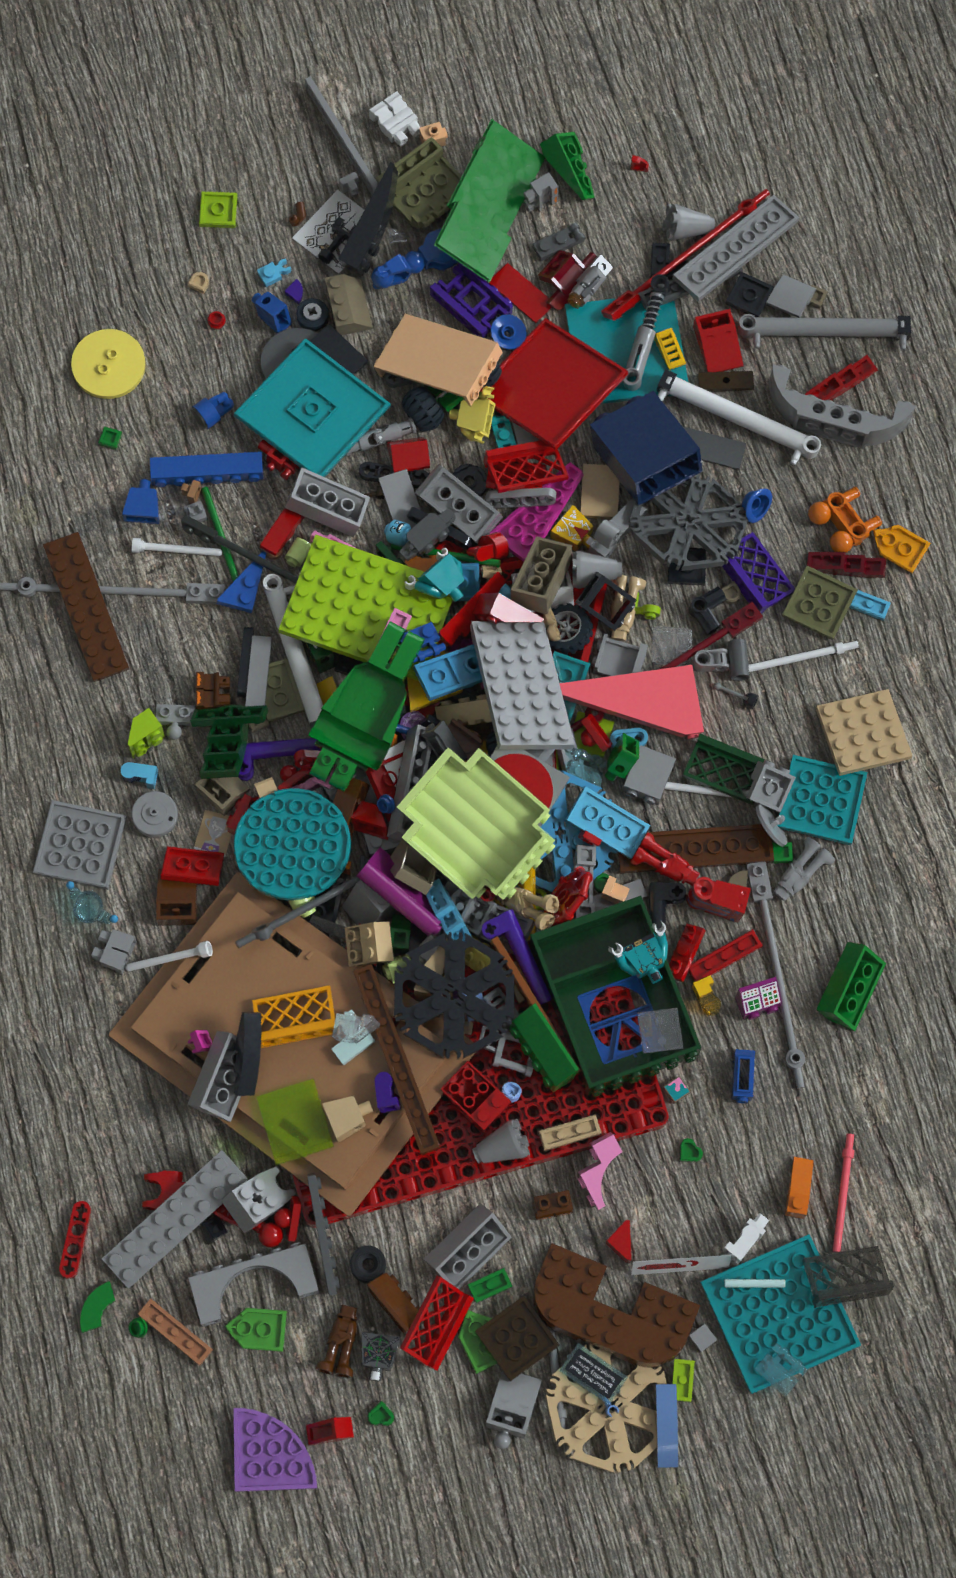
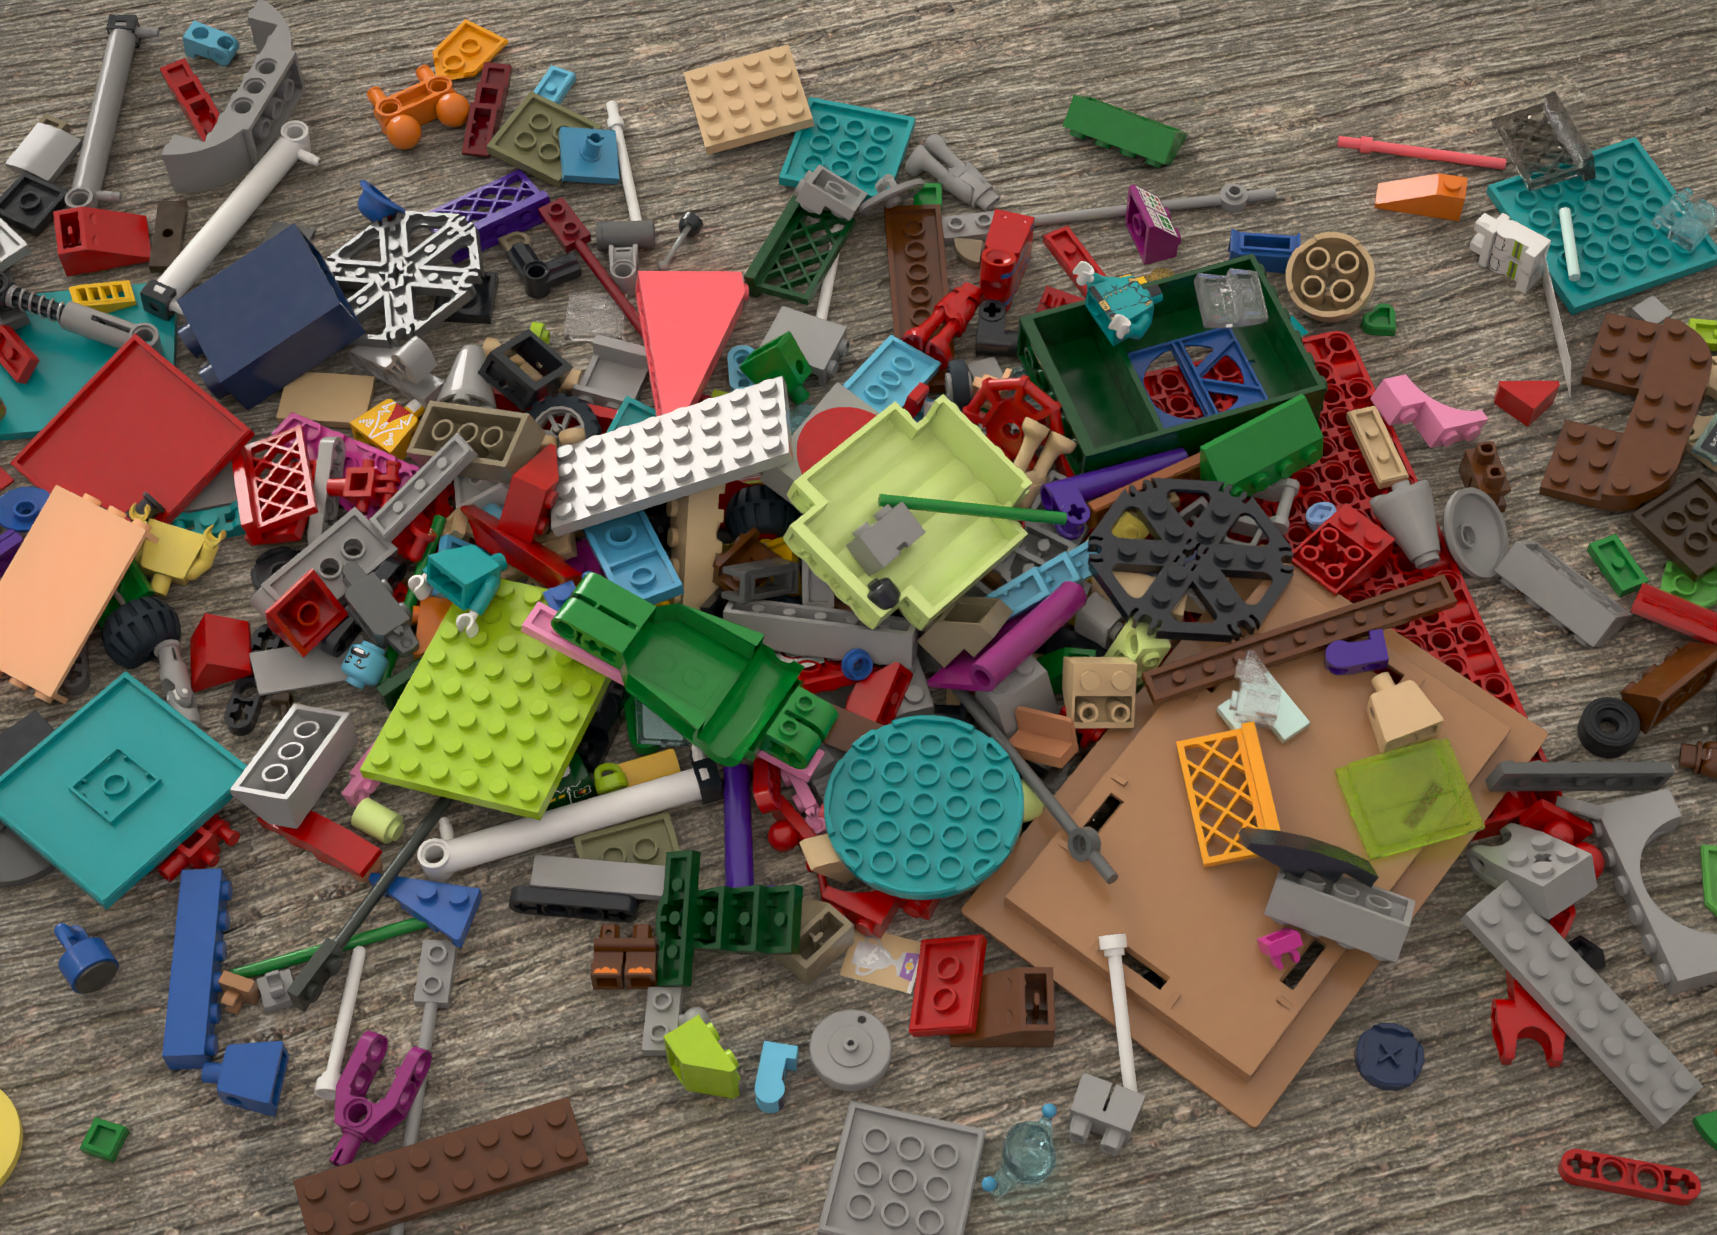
camera: 85 degrees left, 15 degrees down
(129, 556) = (380, 1116): none -> magenta piece
(150, 1112) = (1389, 1056): none -> dark blue tile
(302, 1232) = (1580, 808): none -> light grey tile
(319, 676) = (609, 782): none -> lime tile
(338, 913) = (1044, 737): none -> nougat panel
(412, 807) = (883, 593): none -> black piece
(421, 494) = (305, 613): none -> red slope
(451, 806) = (885, 538): none -> light grey brick
(480, 861) = (974, 509): none -> green piece
(501, 1199) = (1475, 532): none -> light grey dish
(502, 397) = (156, 508): none -> black bush
(507, 548) = (423, 487): none -> light grey tile
(517, 519) = (366, 485): none -> red piece
(609, 867) = (958, 384): none -> black wheel
(709, 1111) = (1328, 260): none -> tan cylinder
(804, 631) = (588, 155): none -> dark azure tile
(894, 382) = (209, 43): none -> medium azure leg

